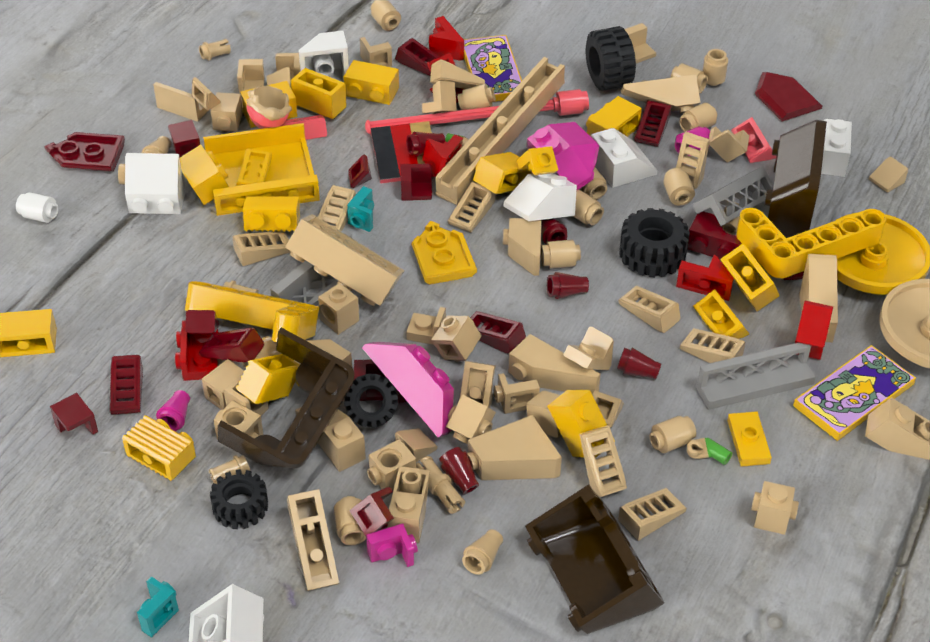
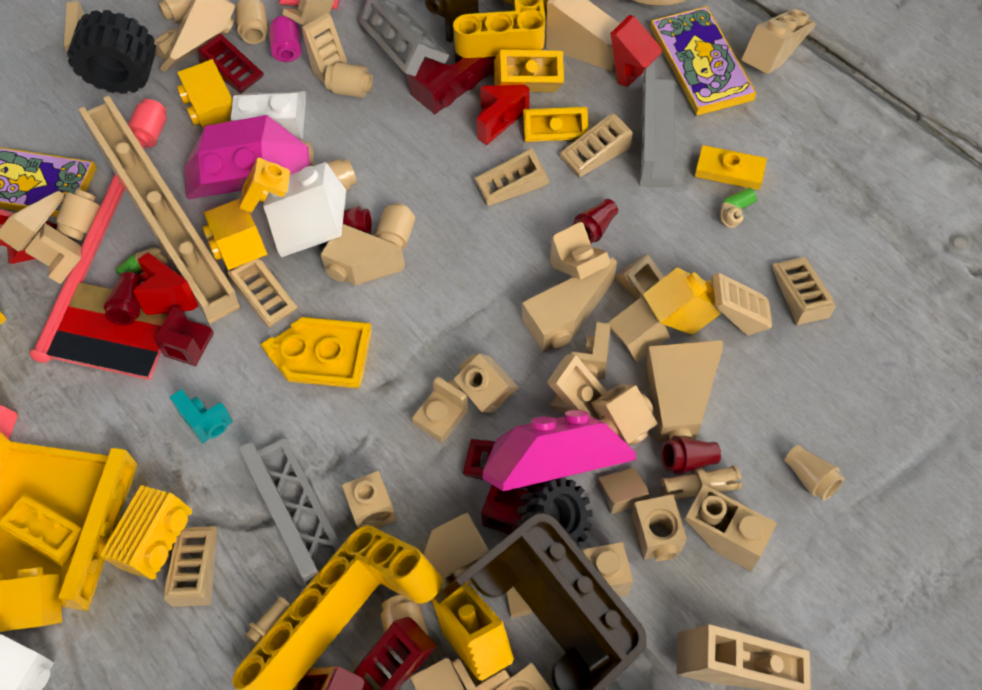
camera: 65 degrees left, 15 degrees up
(336, 198) = (164, 434): tan slope -> none
(344, 259) = (299, 464): tan slope -> none
(346, 525) = (727, 604): tan brick -> none
(359, 172) = (121, 396): dark red slope -> none
(372, 512) = (744, 573): panel -> none
(391, 542) = (778, 576): dark pink bracket -> none
(511, 336) = (480, 325): dark red slope -> none
(565, 285) = (444, 243): dark red cone -> none
(593, 562) = (876, 368): dark brown windscreen -> none
(653, 242) = (425, 114): black tyre -> none
(672, 433) = (708, 227): tan brick -> none
(774, 507) = (838, 180): tan brick -> none

